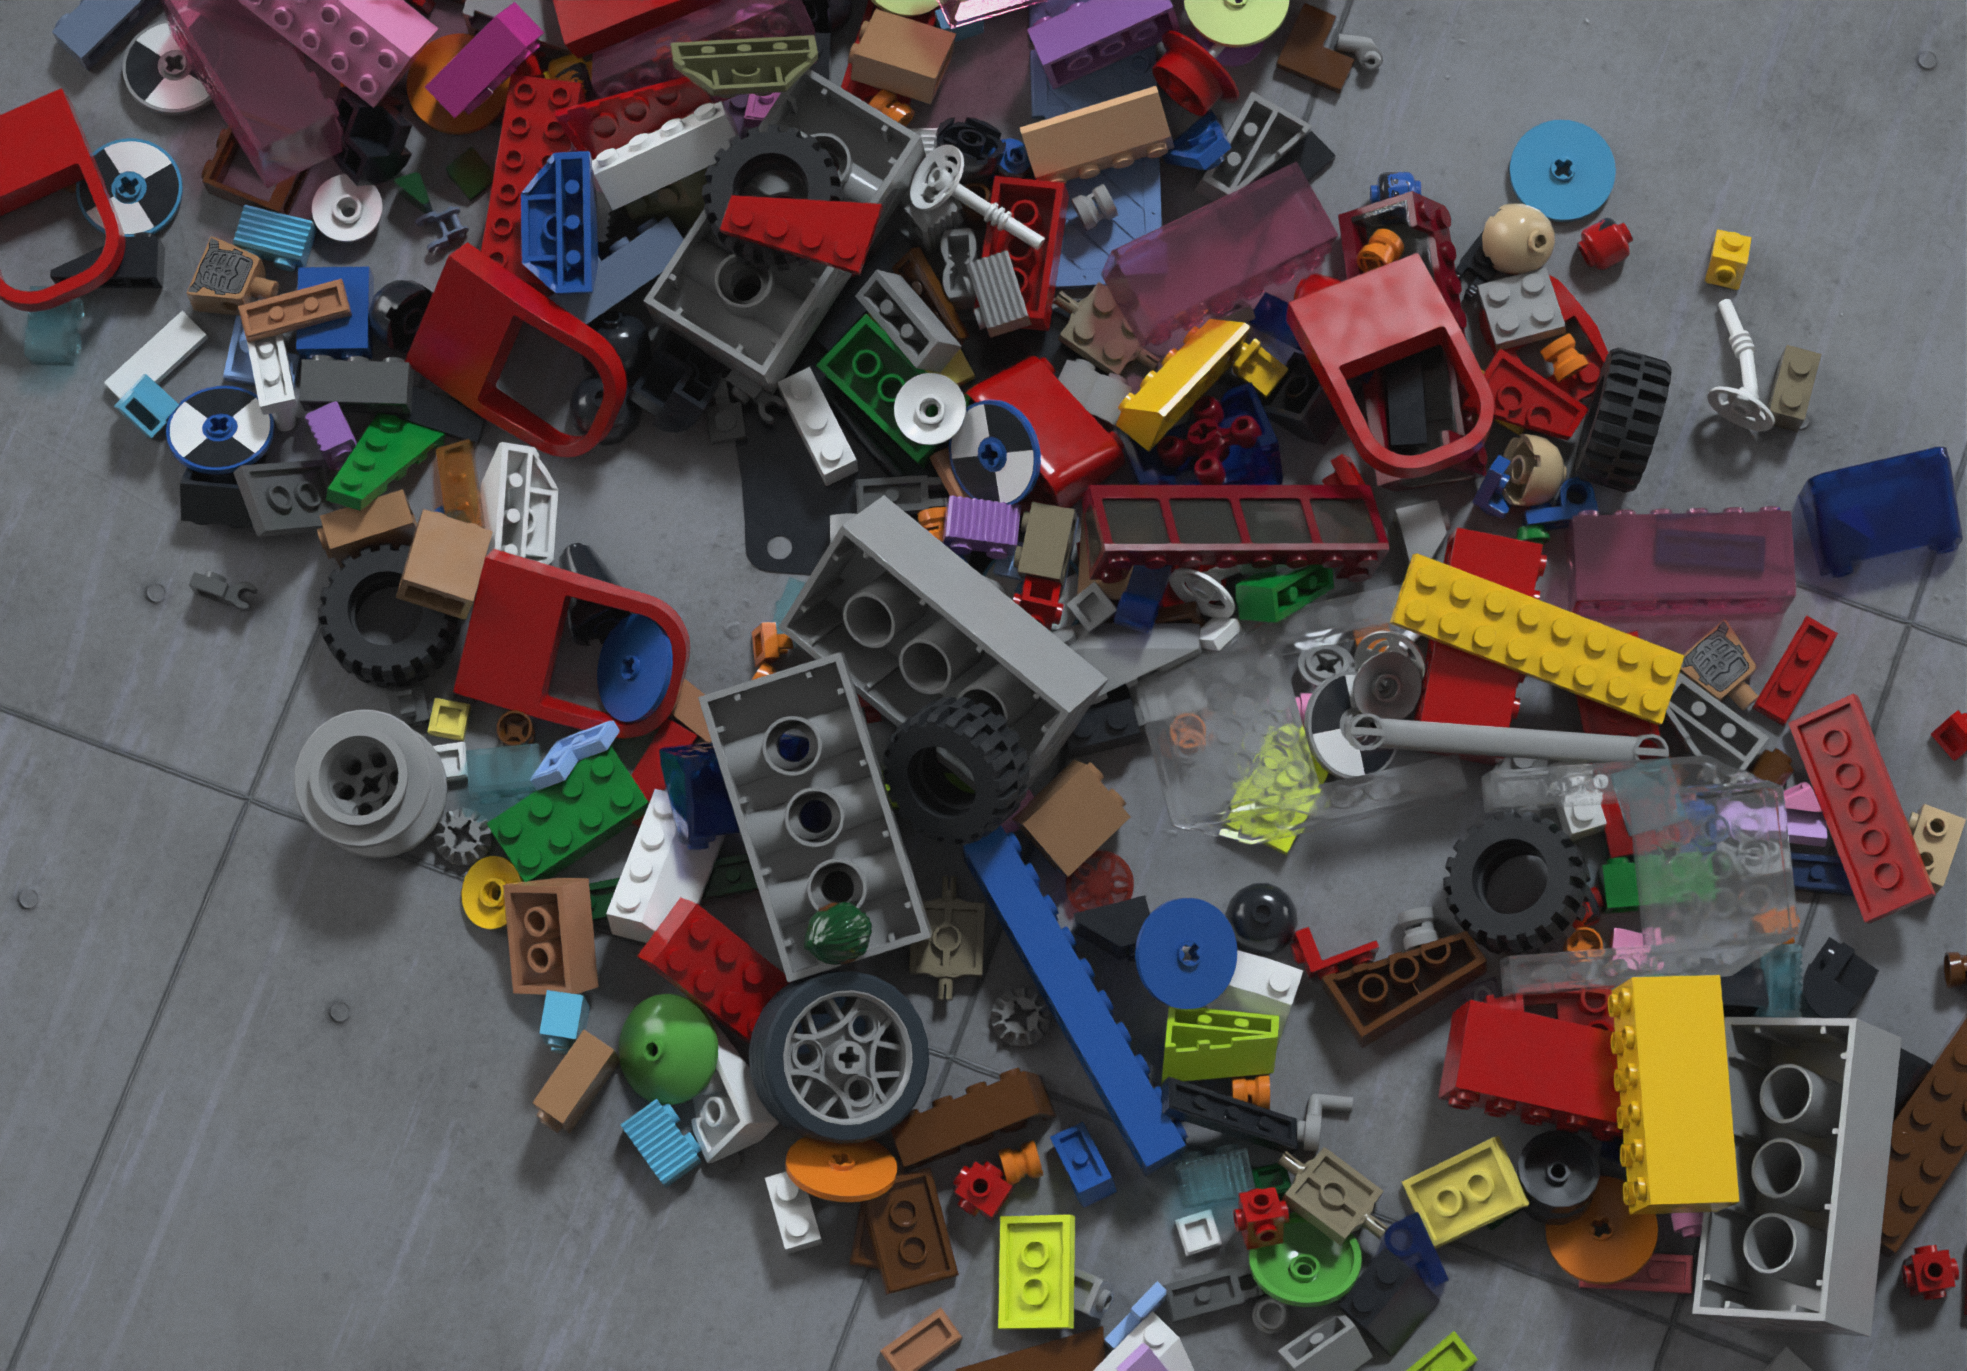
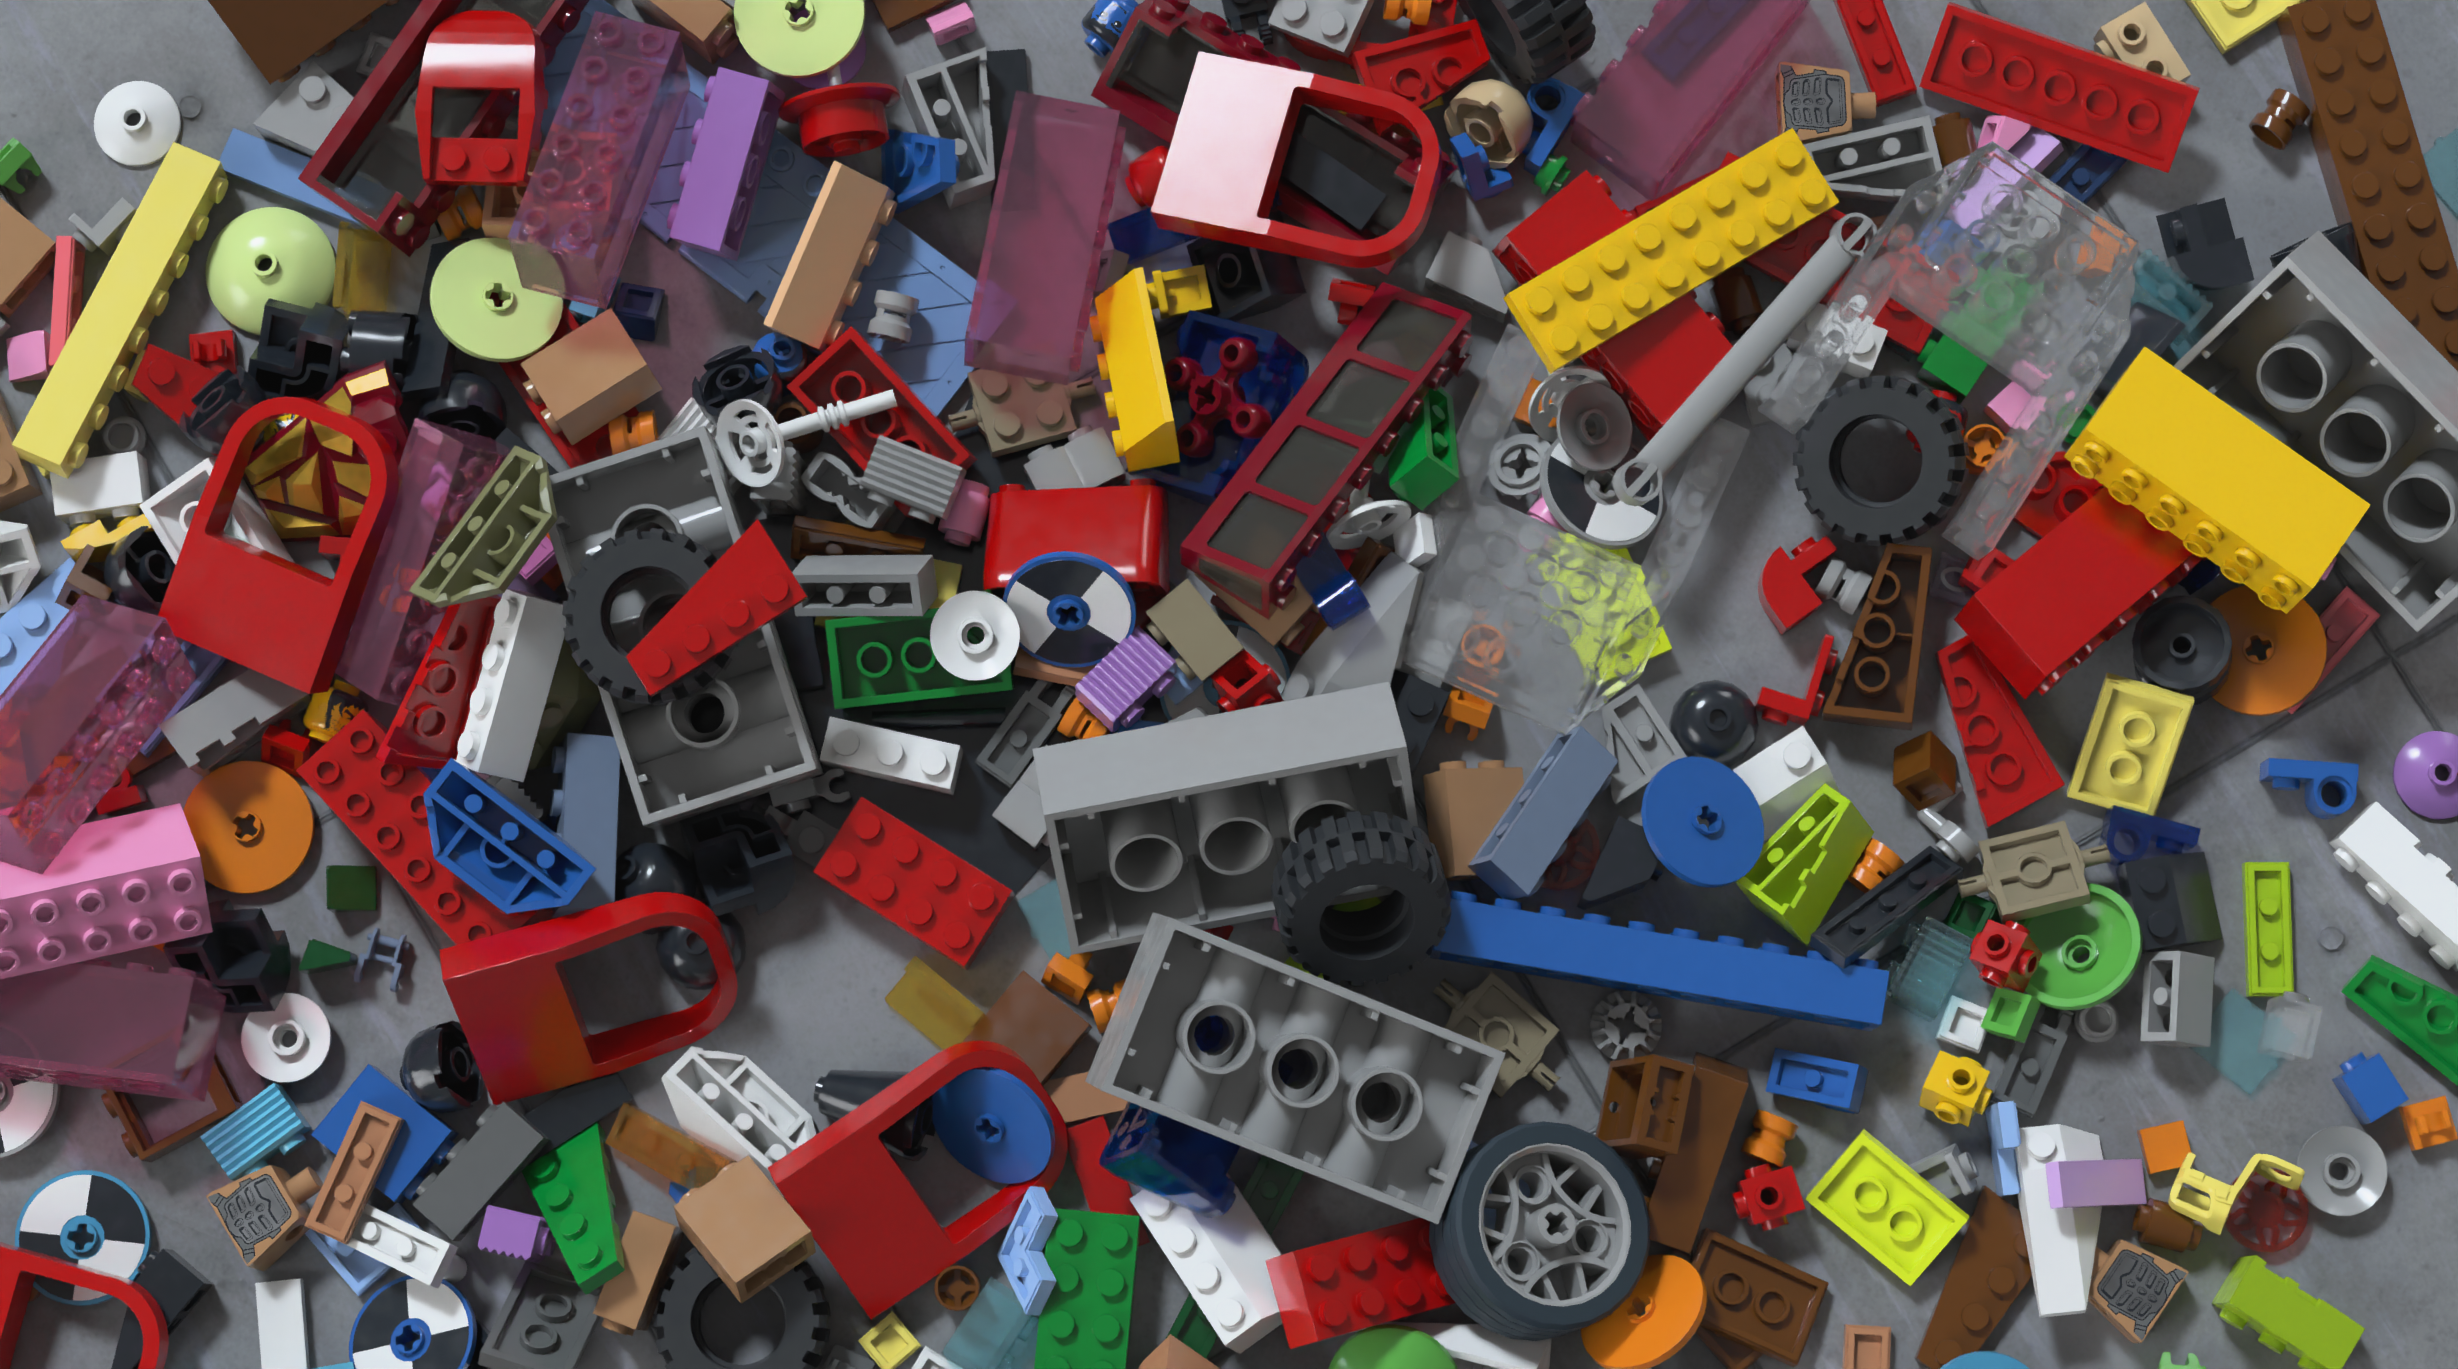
camera: 50 degrees left, 5 degrees up
(486, 61) = (259, 784): dark pink brick -> none
(684, 577) = (933, 1005): none -> clear yellow panel
(717, 648) = (1033, 1026): none -> reddish brown tile
(748, 504) = (914, 883): none -> red brick
(838, 933) = (1435, 1139): dark green hair -> none
(972, 57) = (639, 310): none -> dark blue slope
(985, 1059) = (1638, 1127): none -> reddish brown window
(1008, 349) = (967, 514): none -> bright pink brick
(1092, 607) = (1296, 639): light grey tile -> none
(1110, 852) = (1544, 814): none -> sand blue brick
(1140, 755) = (1468, 709): none -> orange tile
(1149, 1255) = (1956, 1089): none -> yellow brick
(1209, 876) = (1637, 740): none -> light grey wing
(1226, 1253) = (2010, 1014): none -> bright green plate
(1313, 98) = (951, 23): none -> bright pink slope
(1341, 1076) = (1924, 770): none -> reddish brown panel
(1381, 250) = (1164, 84): orange wheel -> none
(1390, 888) = (1782, 585): none -> red brick
(1399, 1110) = (1997, 740): none -> red wing
(1536, 1313) = (2290, 773): none -> blue plate
(1549, 712) = (1735, 300): none -> reddish brown brick
(1648, 796) = (1908, 271): clear light blue piece -> none

